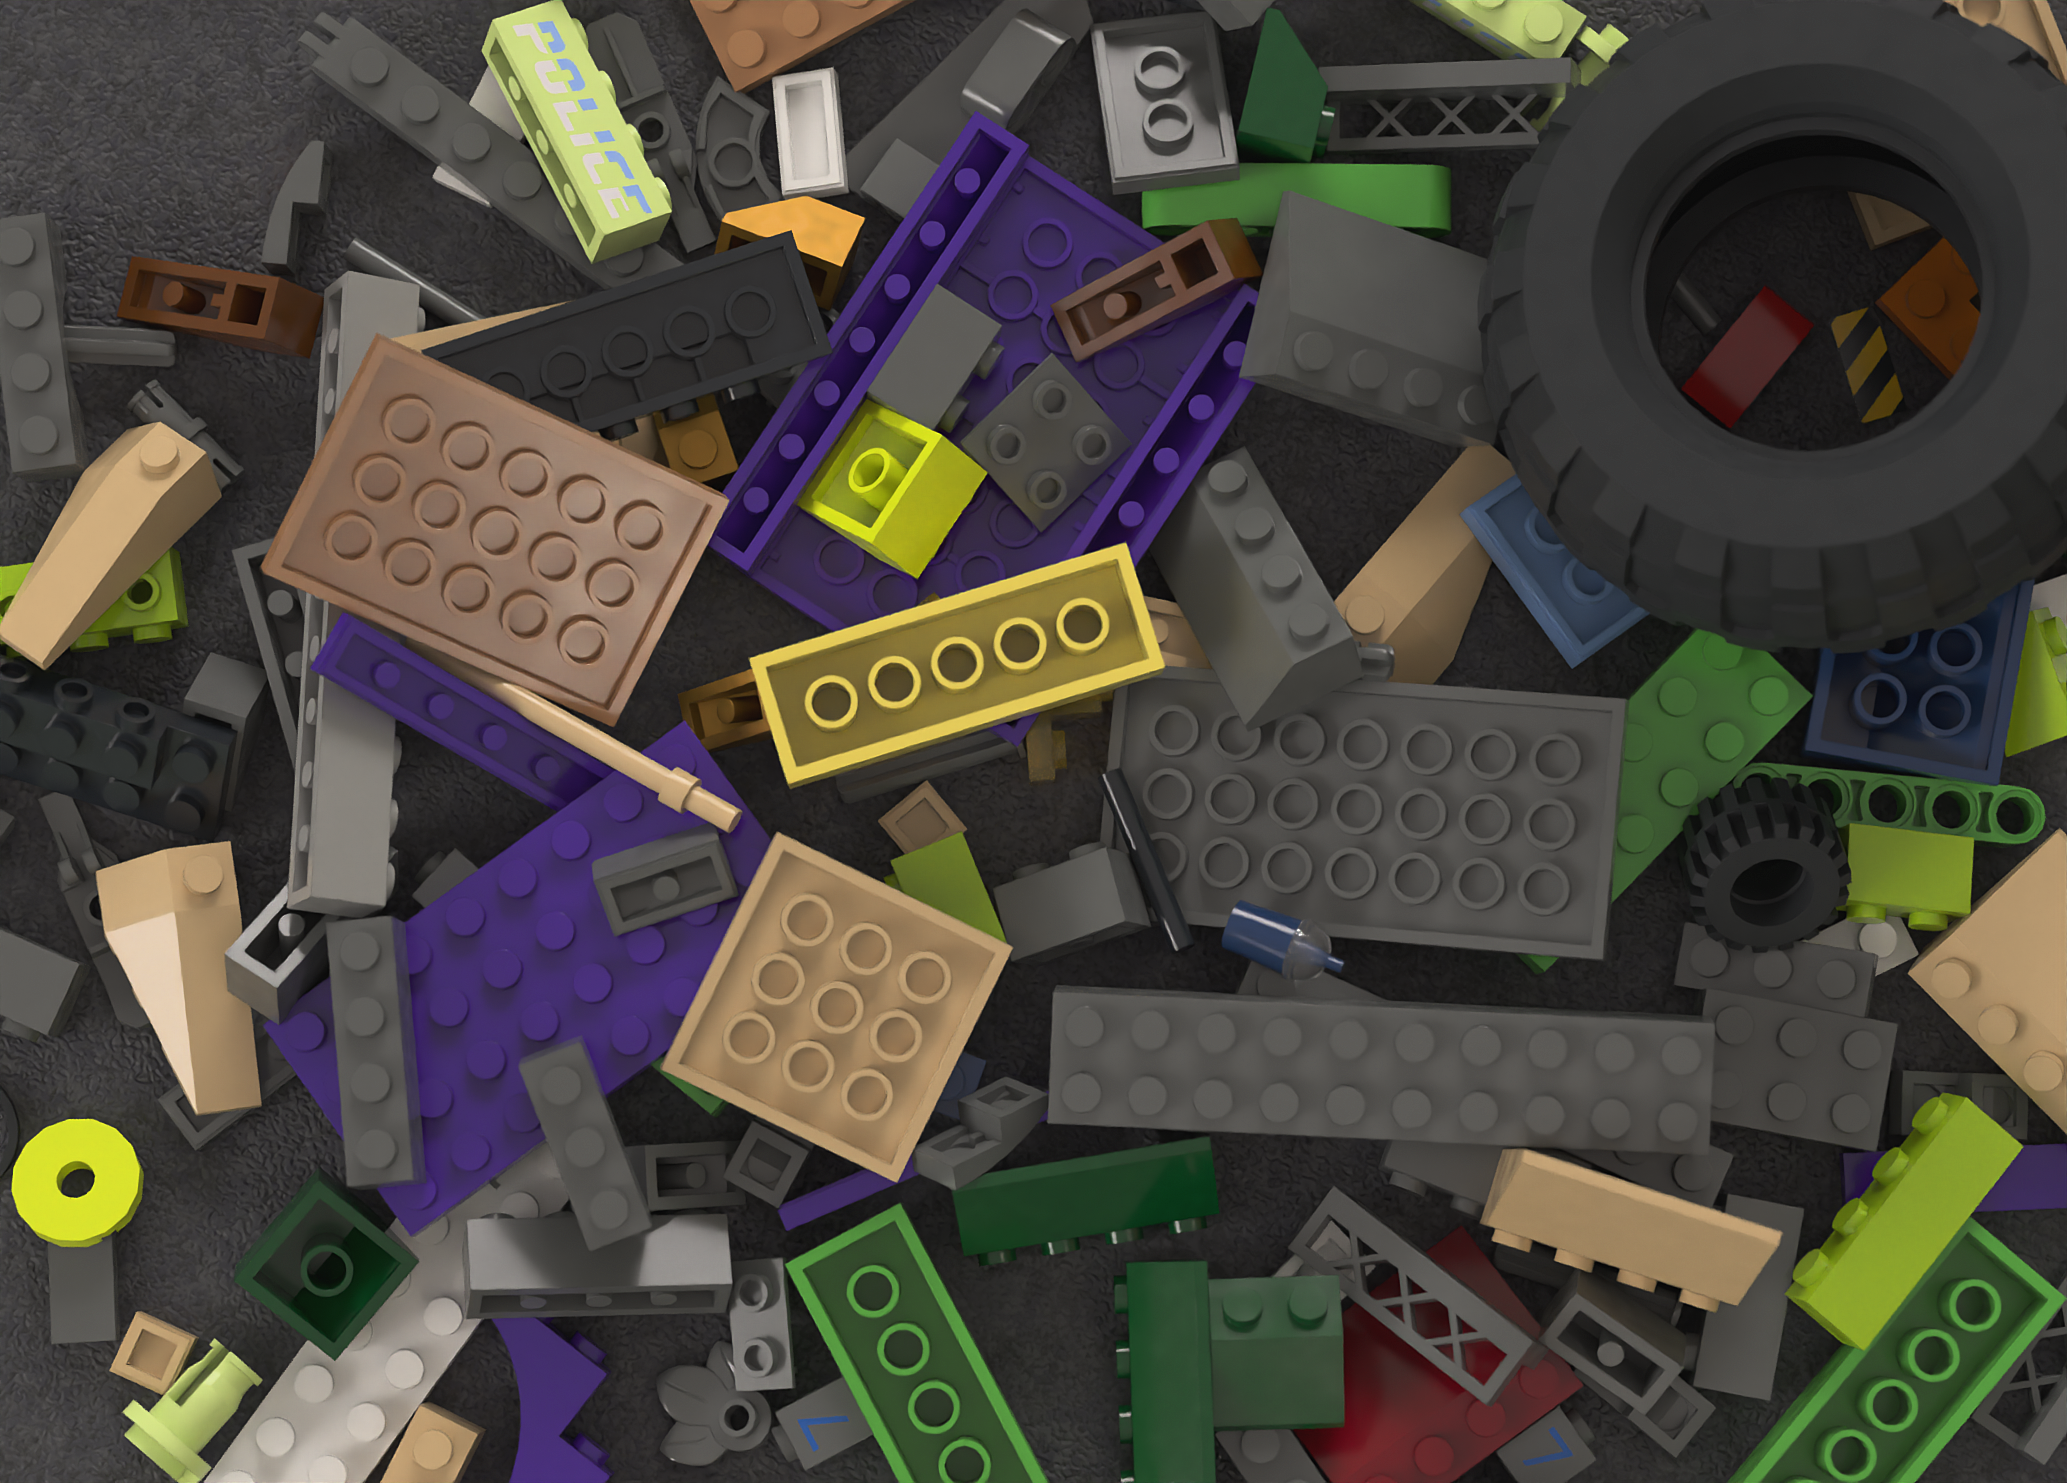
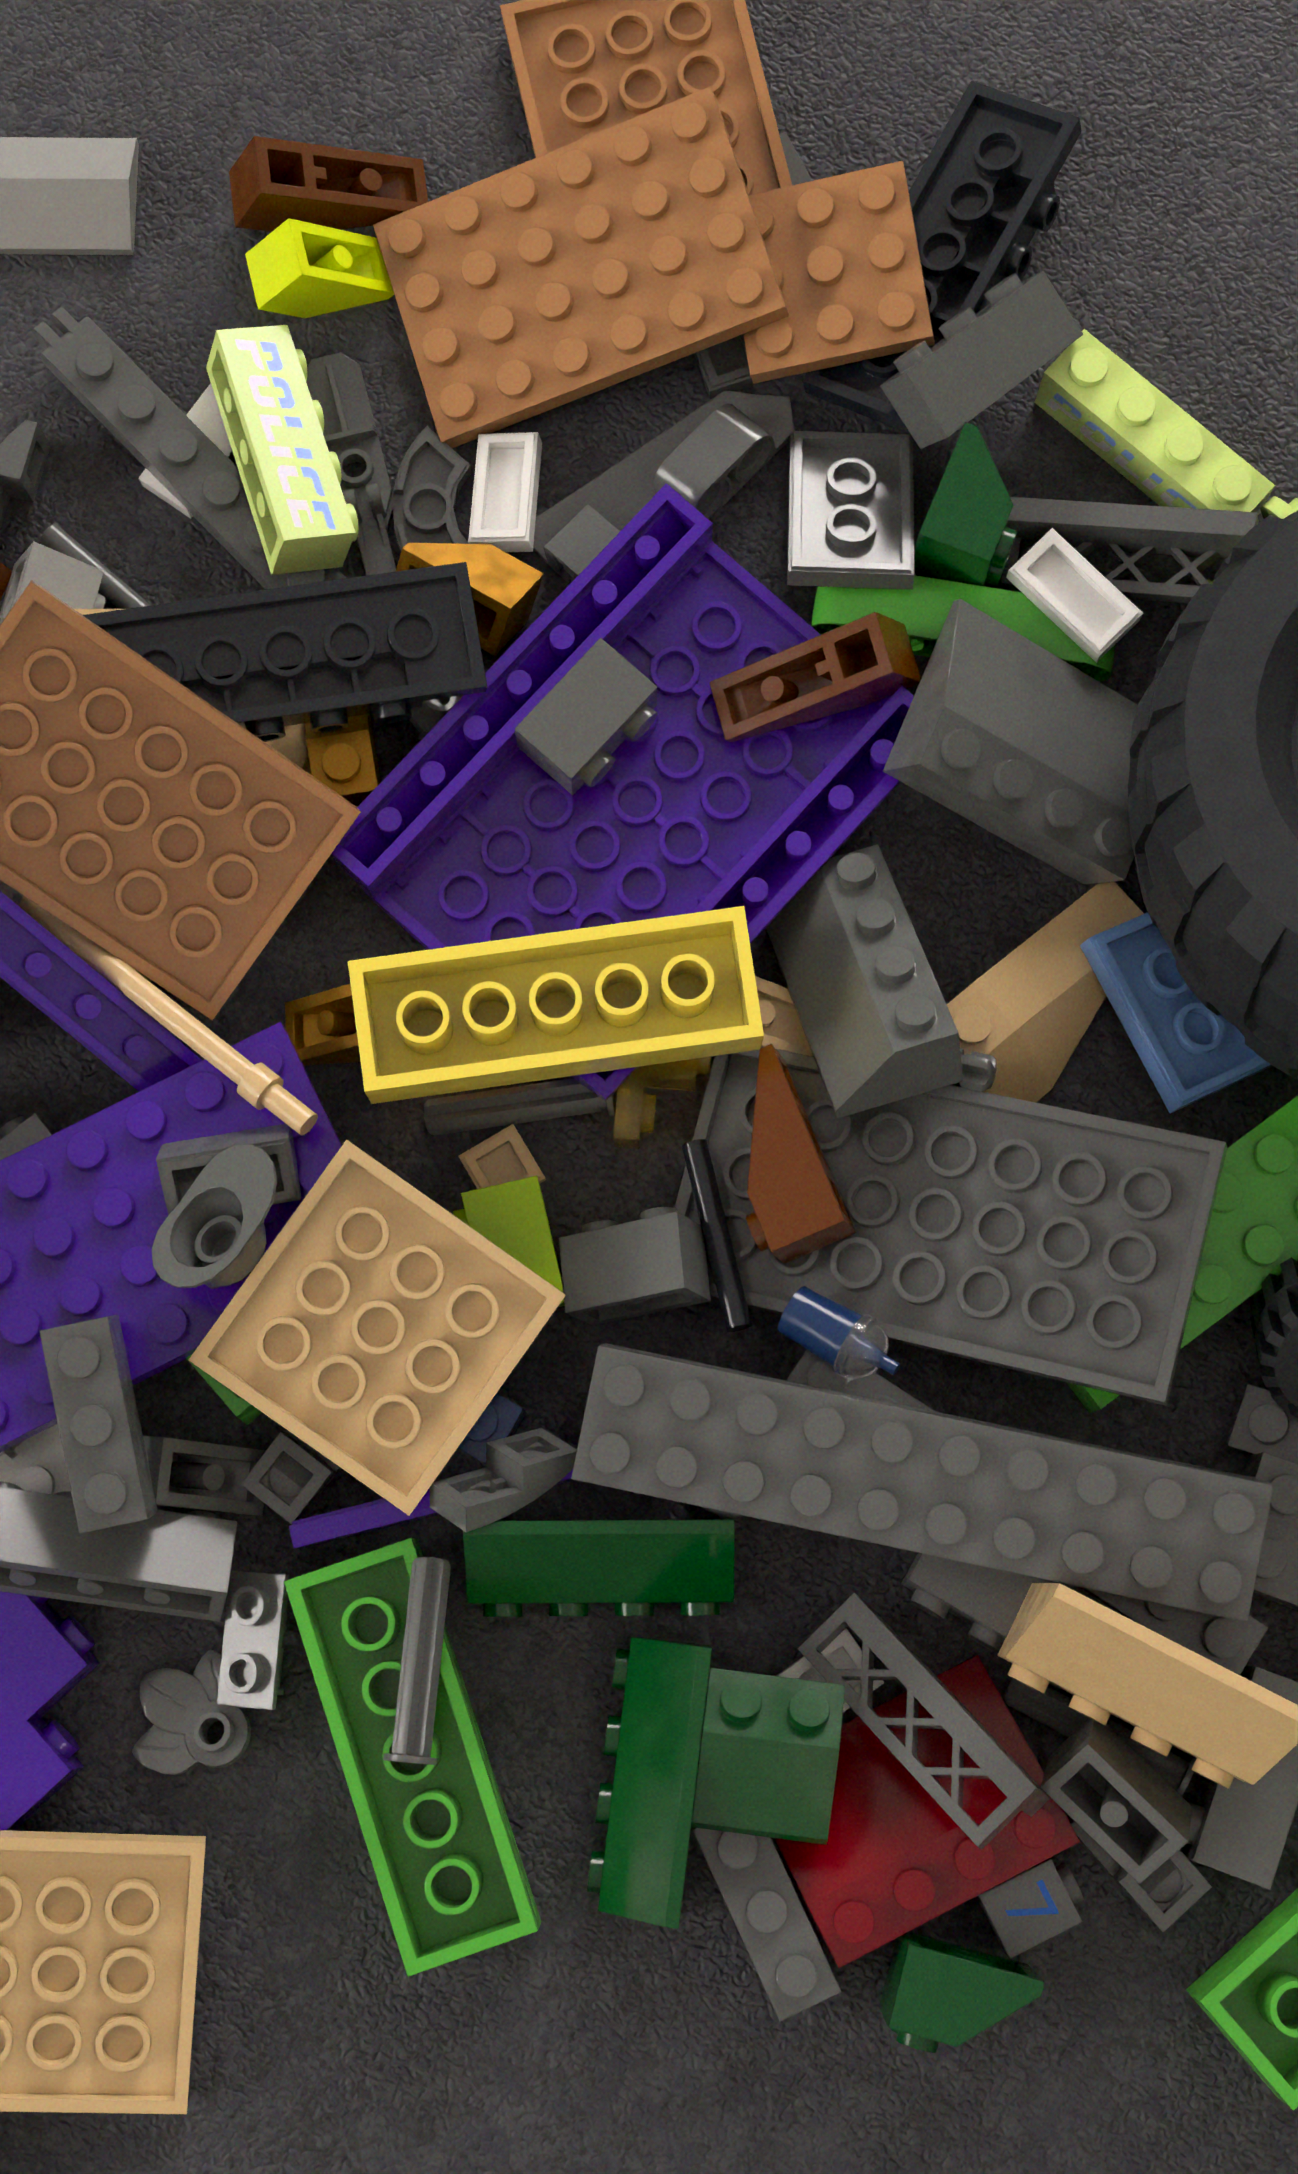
camera: 15 degrees right, 5 degrees down
(667, 931) = (219, 1223): none -> dark grey piece
(820, 1424) = (293, 1753): dark grey brick -> none
(893, 488) = (526, 830): neon yellow slope -> none
(931, 1318) = (421, 1662): none -> dark grey axle
(1045, 442) = (682, 810): dark grey hinge -> none
(1209, 794) = (788, 1173): none -> reddish brown slope
(1402, 160) = (1074, 595): none -> white tile

